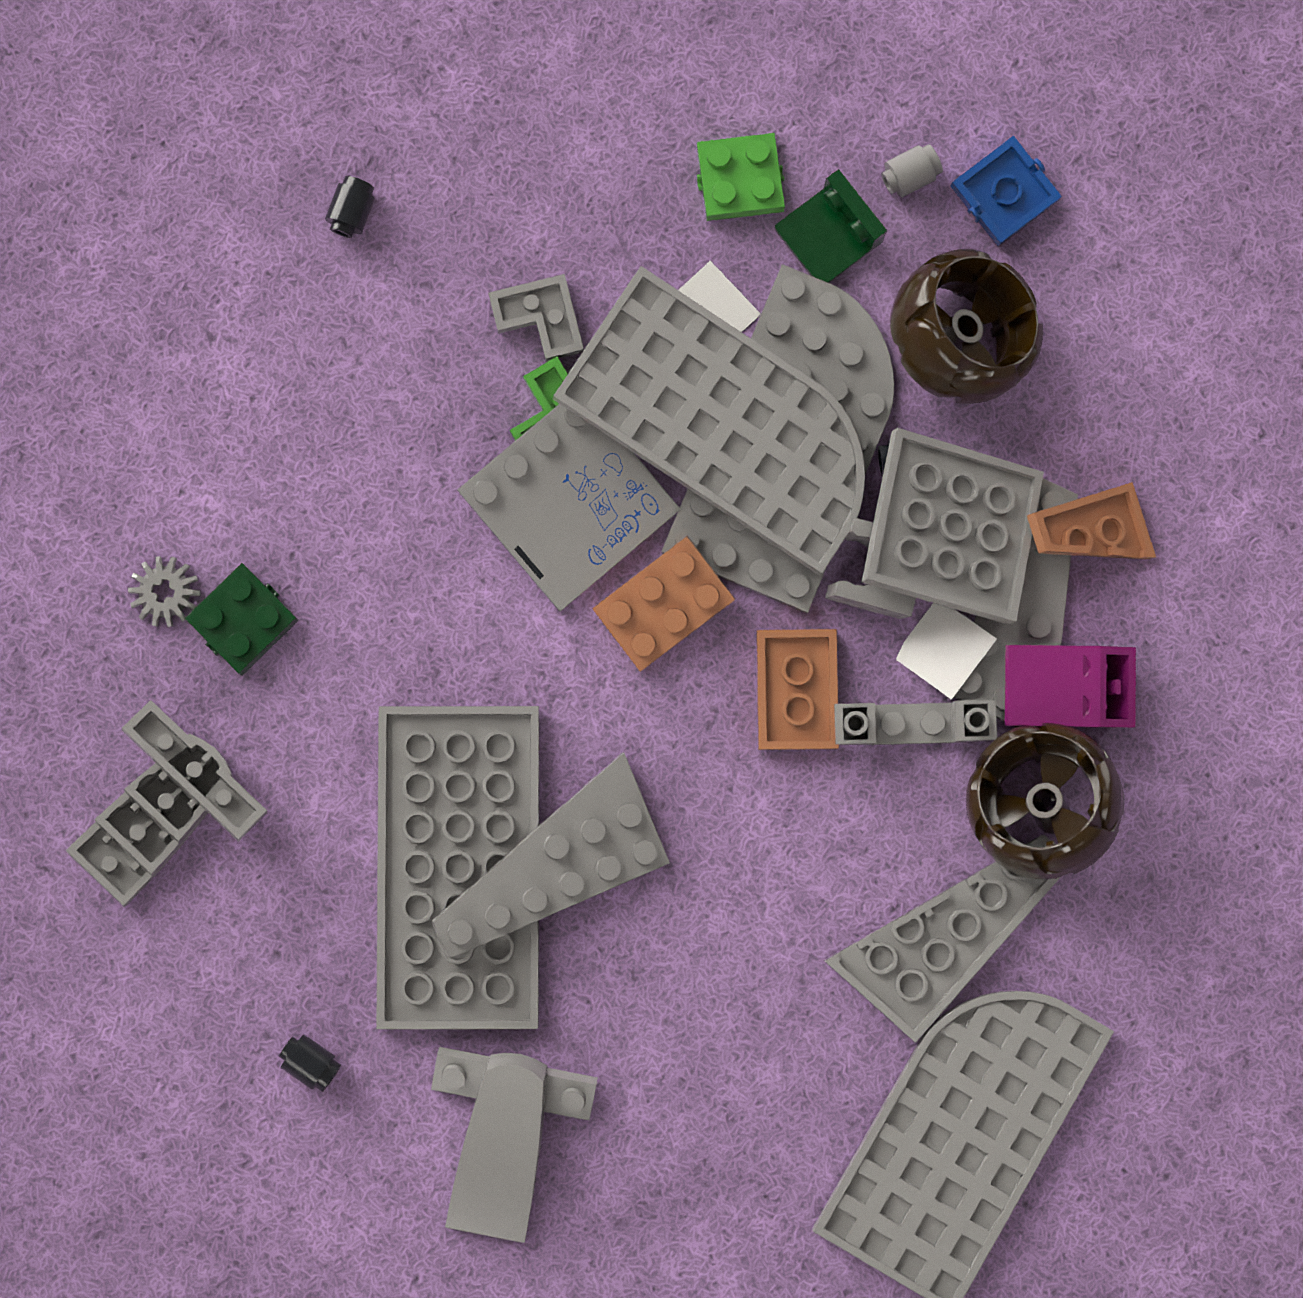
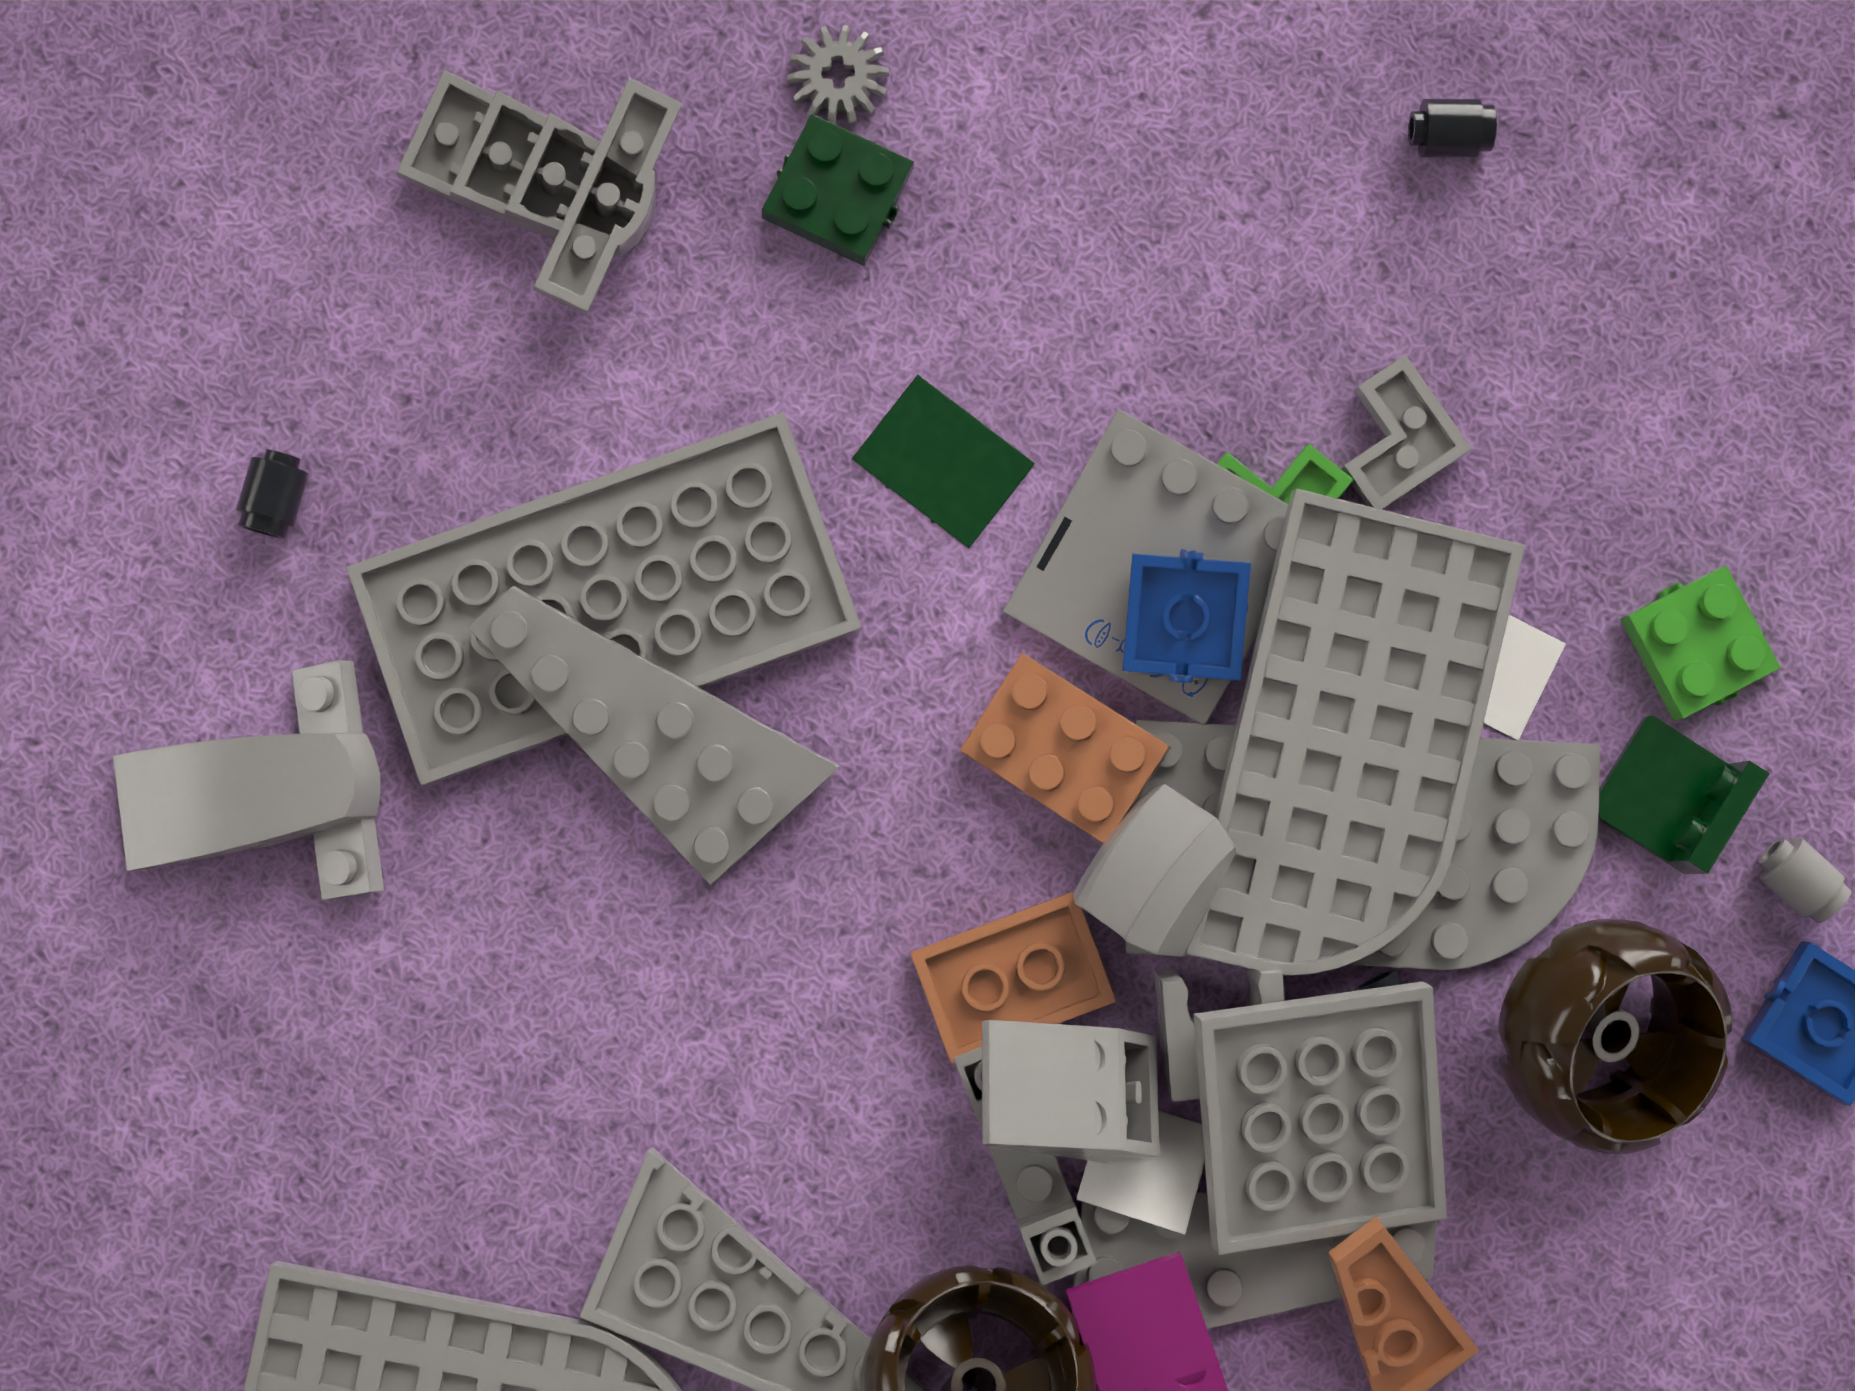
camera: 75 degrees right, 0 degrees up
(446, 615) = (943, 461): none -> dark green window
(607, 495) = (1186, 616): none -> blue plate
(764, 572) = (1157, 872): none -> light grey slope
(882, 676) = (1070, 1090): none -> light grey slope

